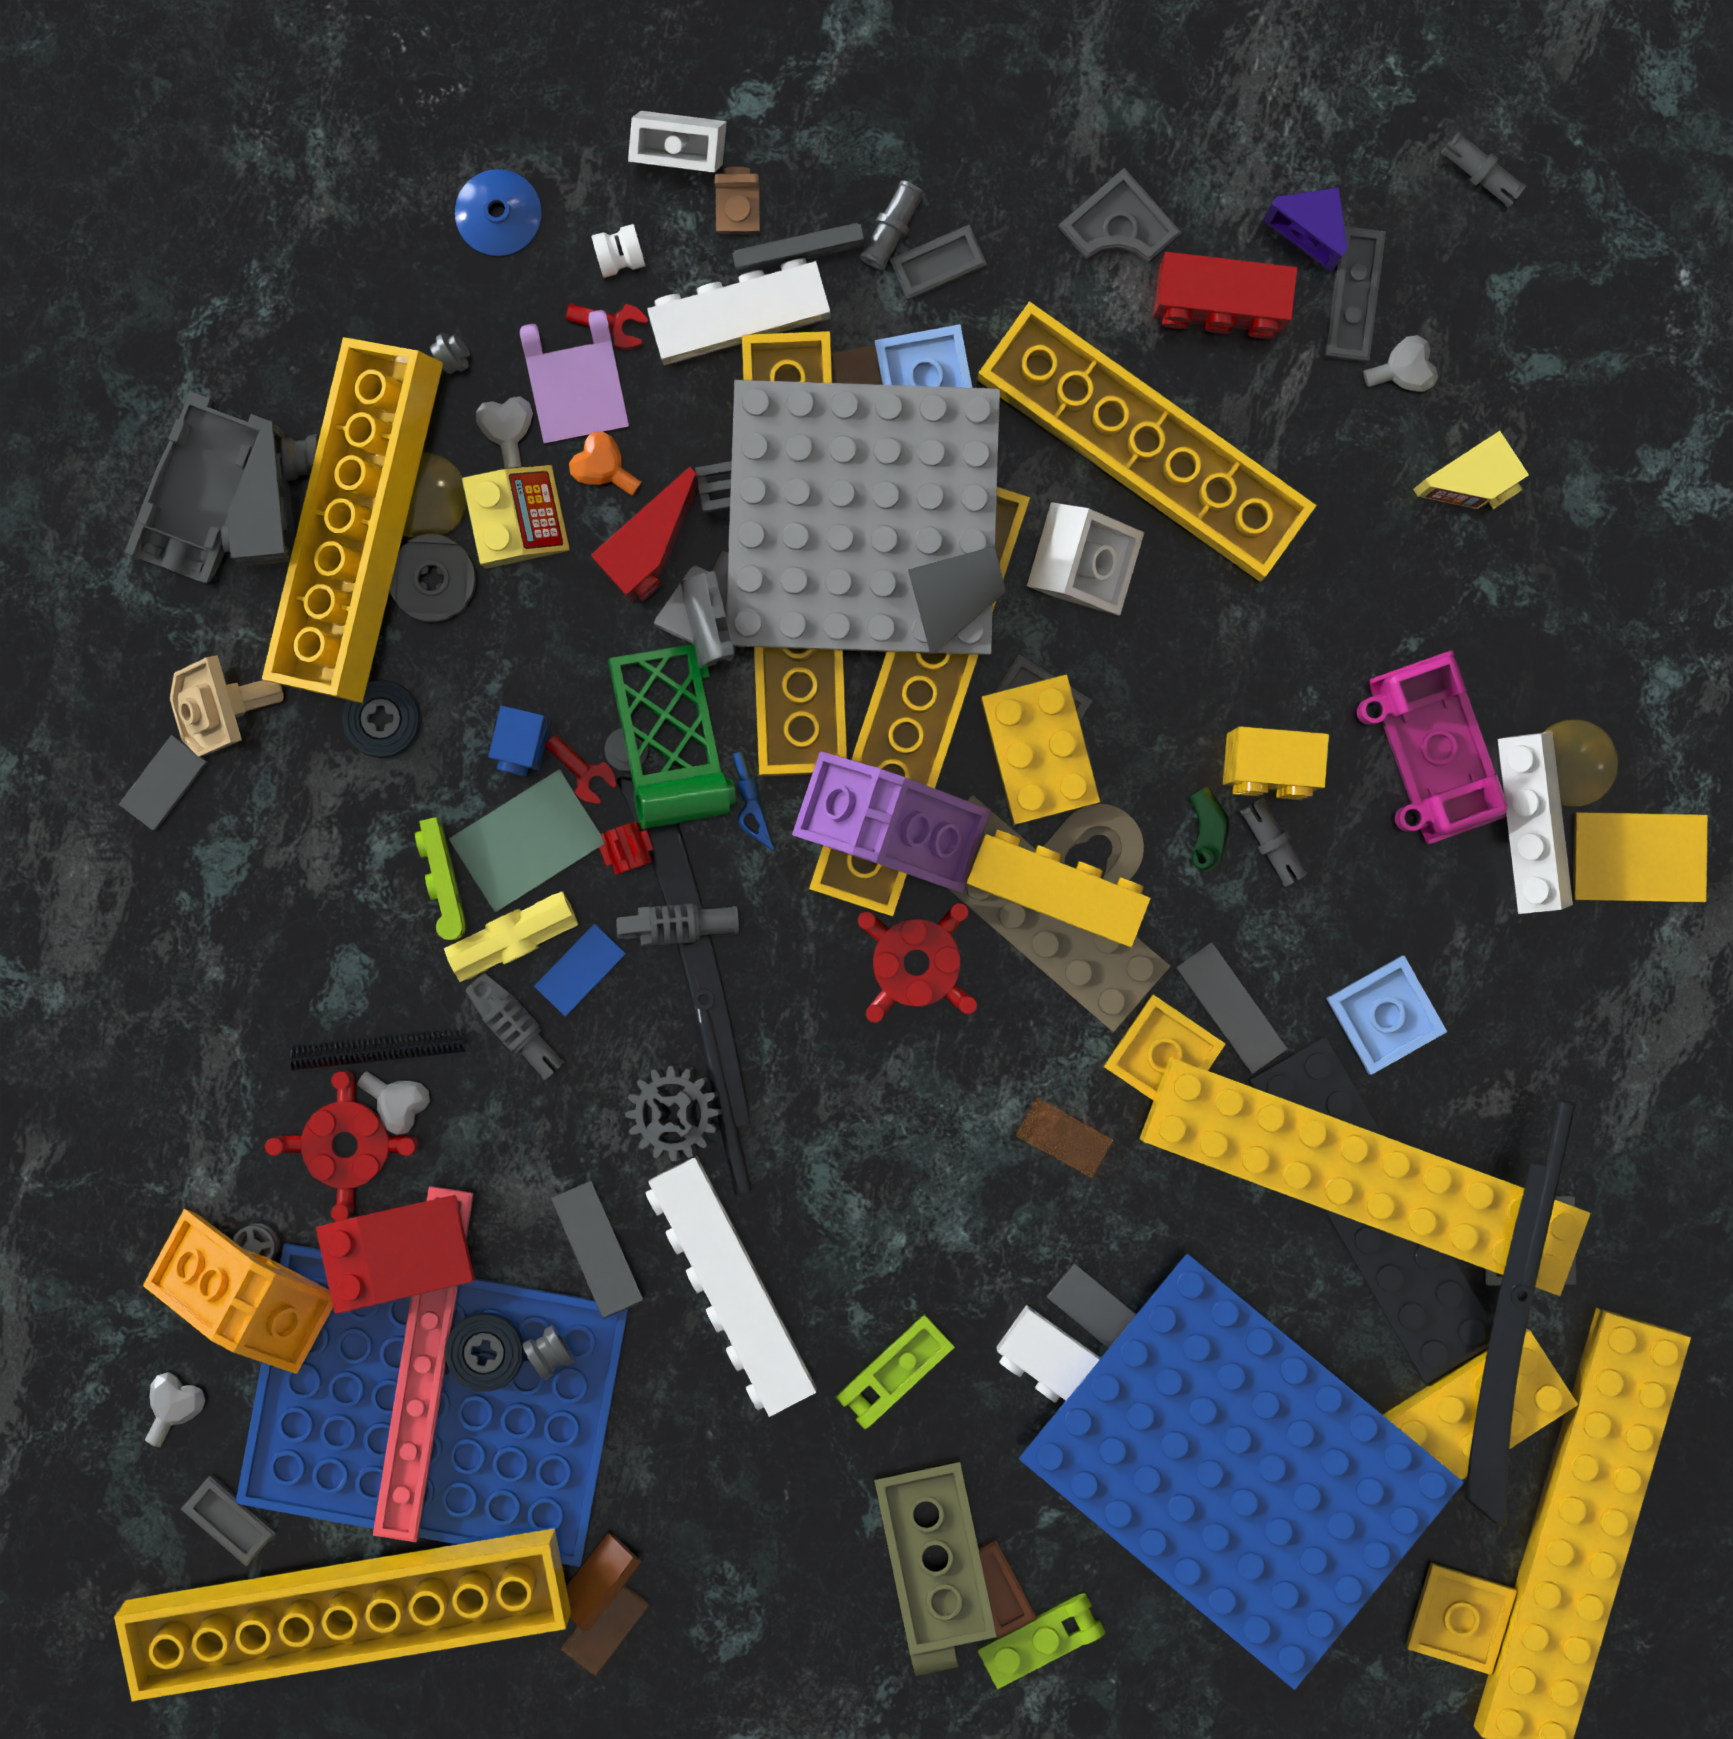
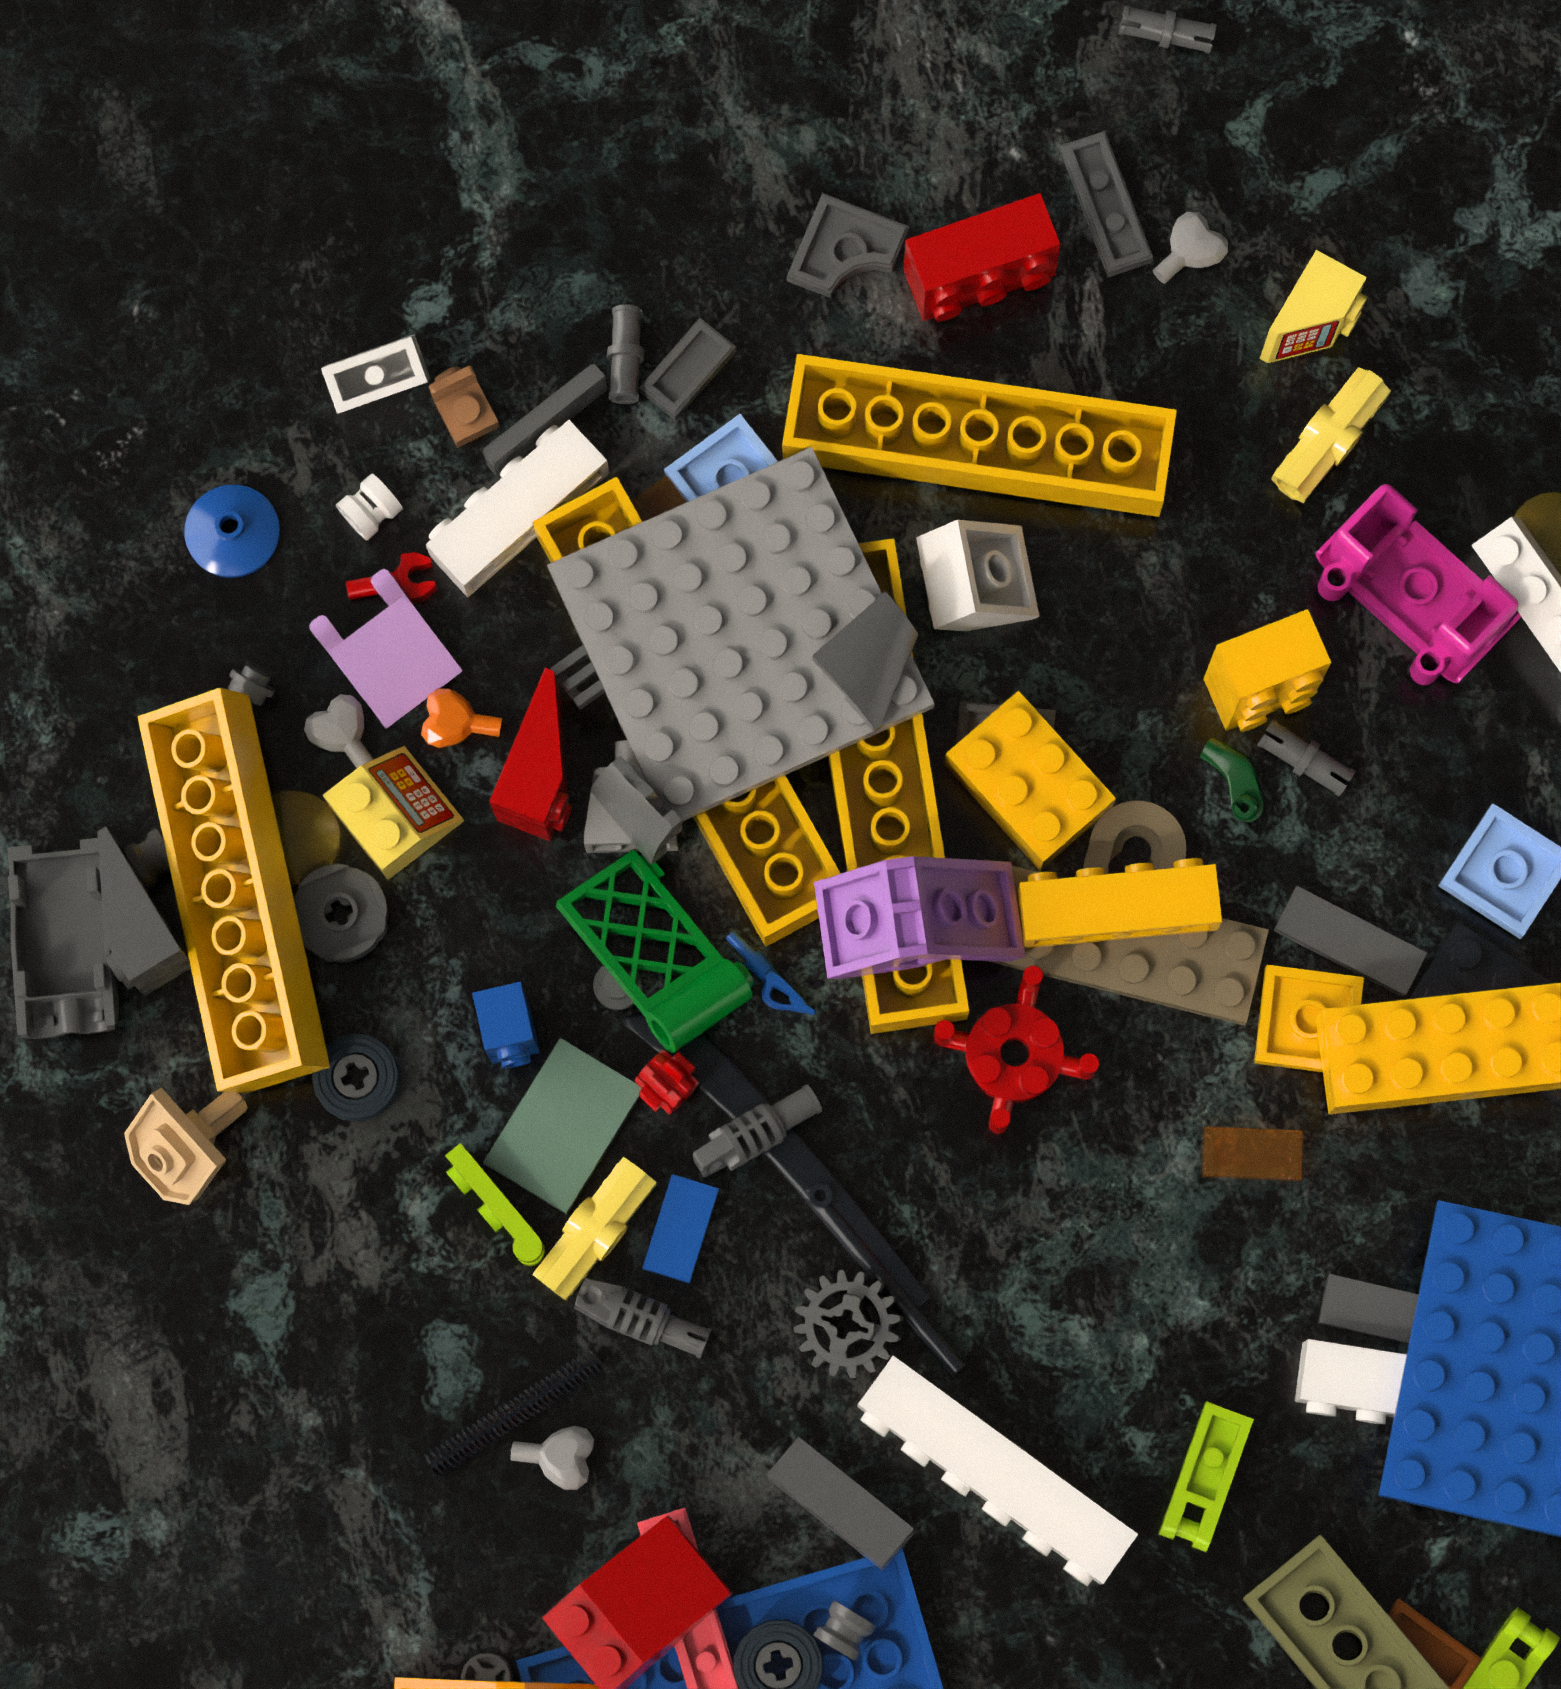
camera: 25 degrees left, 10 degrees down
(163, 783) = (165, 1251): dark grey tile -> none
(319, 1151) = (501, 1513): red plate -> none
(581, 769) = (583, 1029): red bar -> none
(1311, 223) = (1031, 153): dark purple slope -> none
(1436, 585) = (1331, 435): none -> light yellow piece

